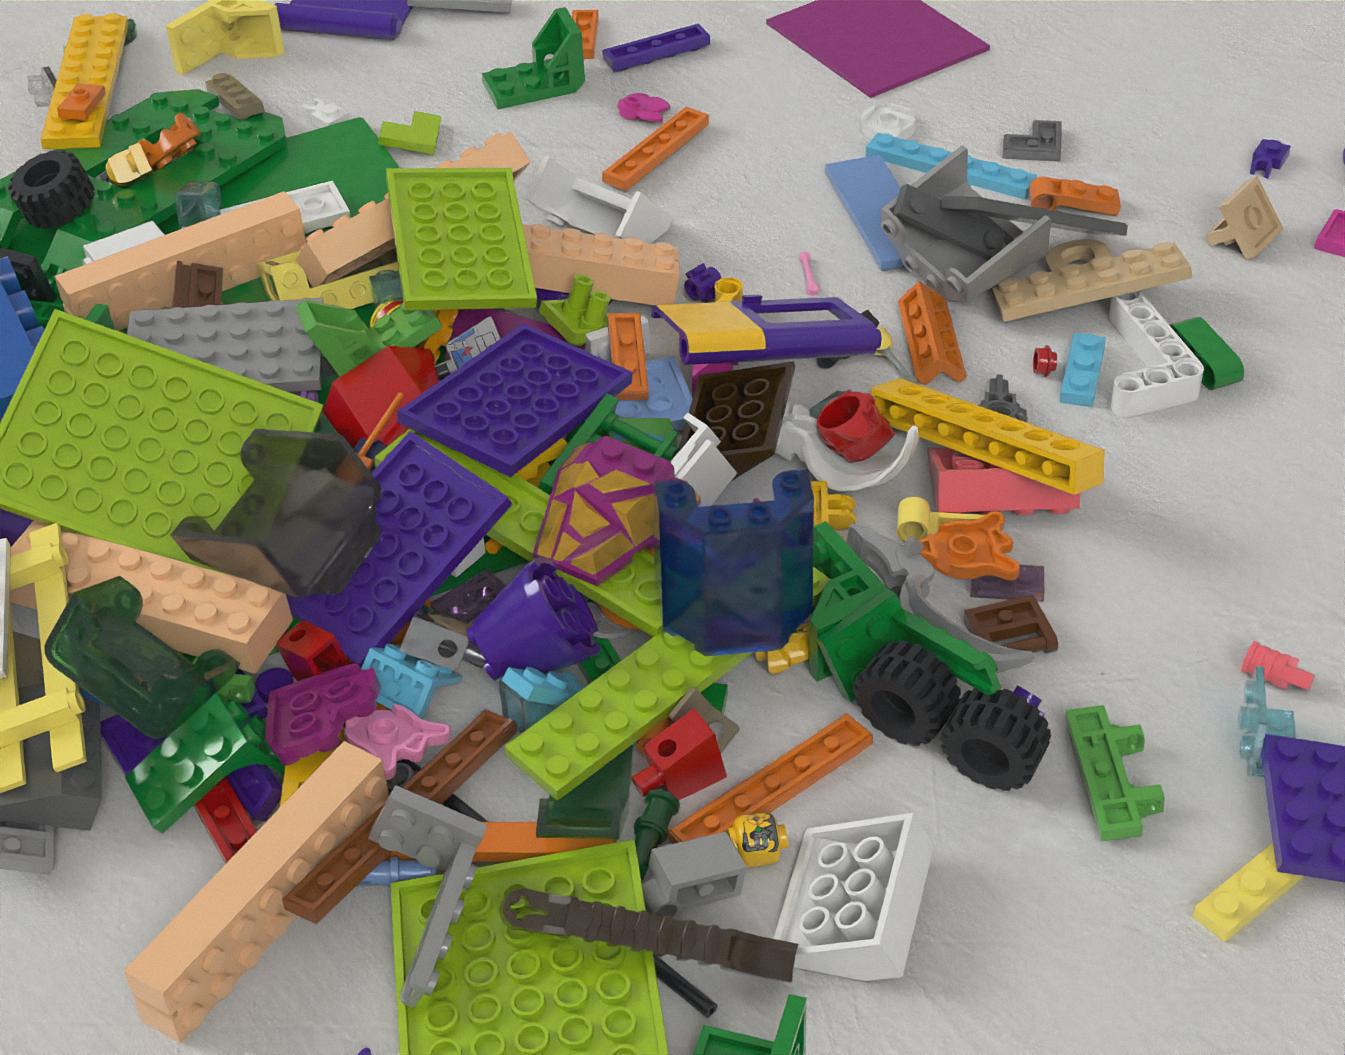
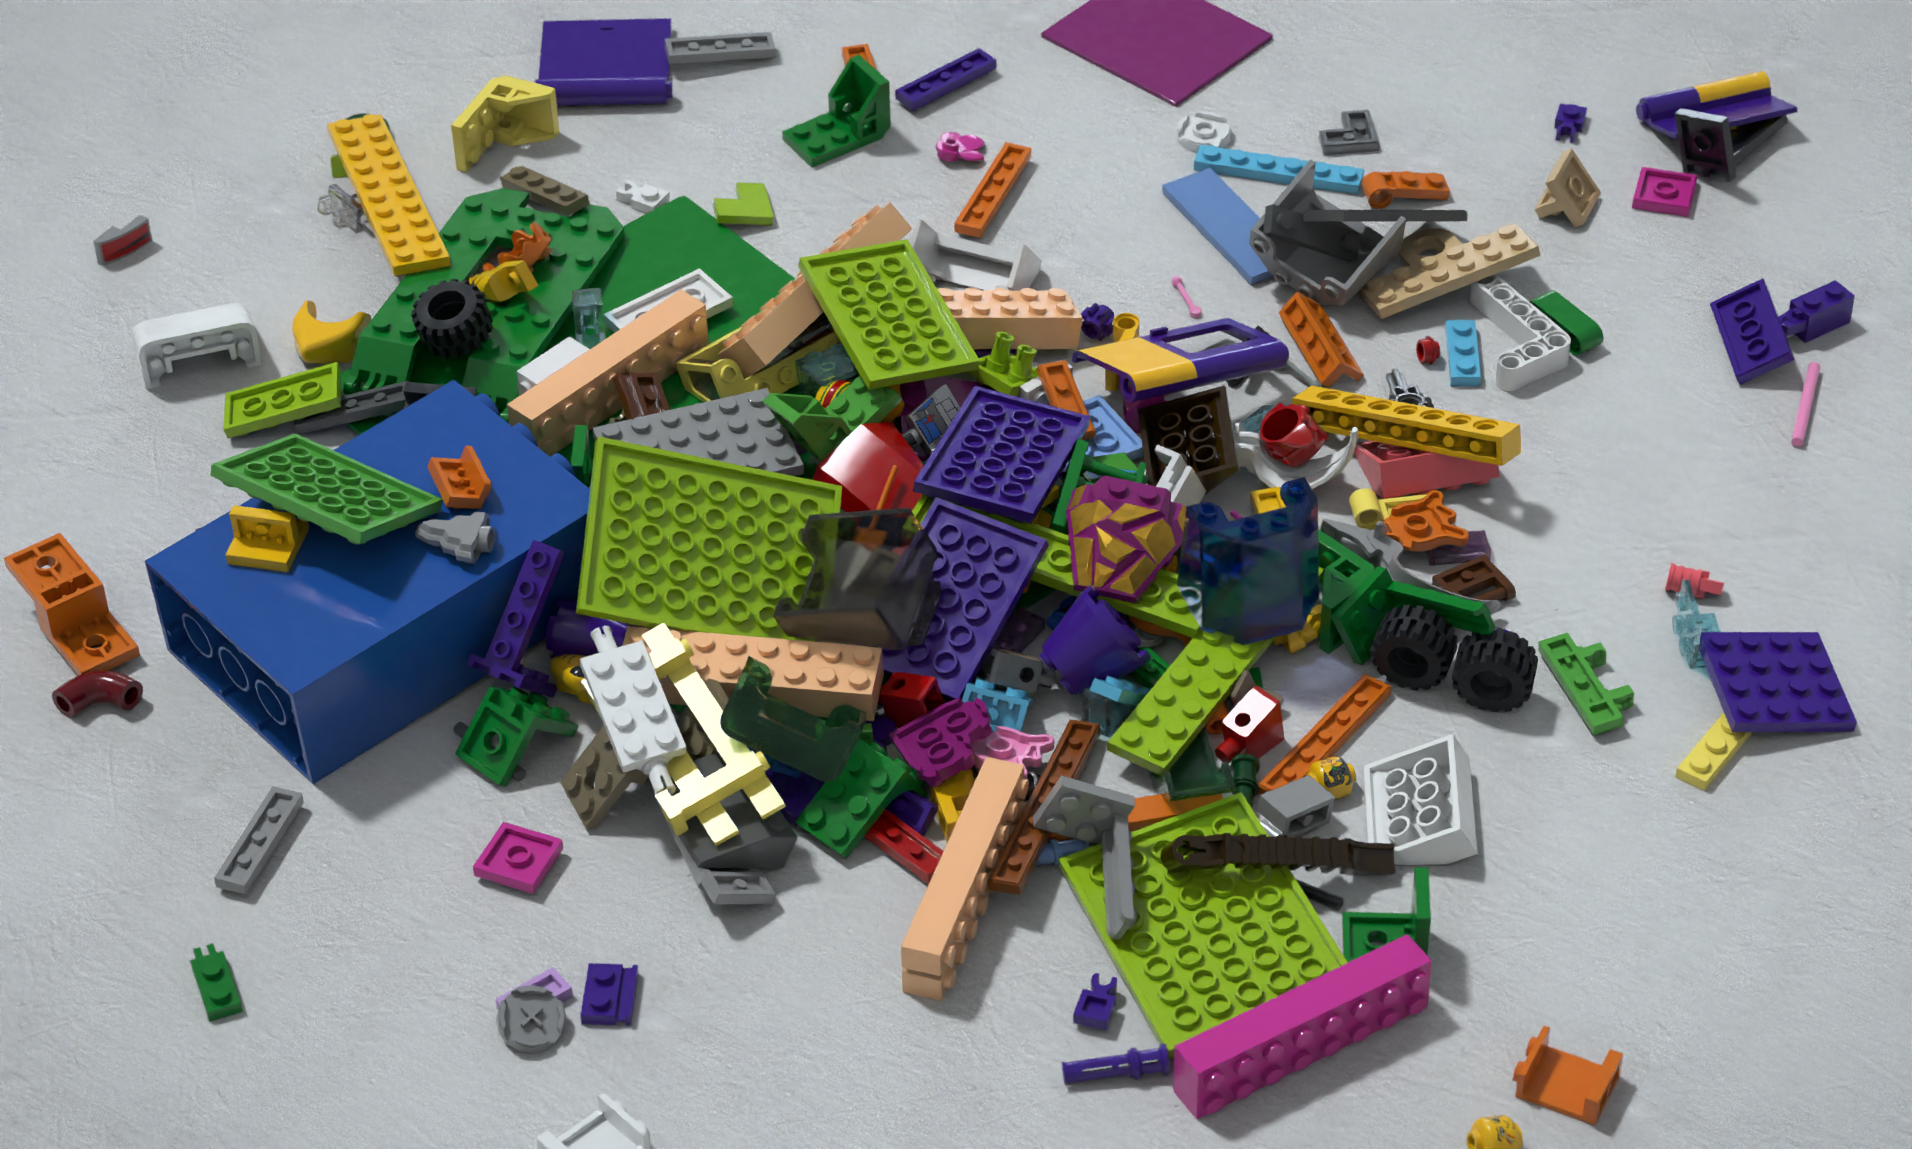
camera: 15 degrees left, 0 degrees up
(81, 101) = (414, 221): orange plate -> none

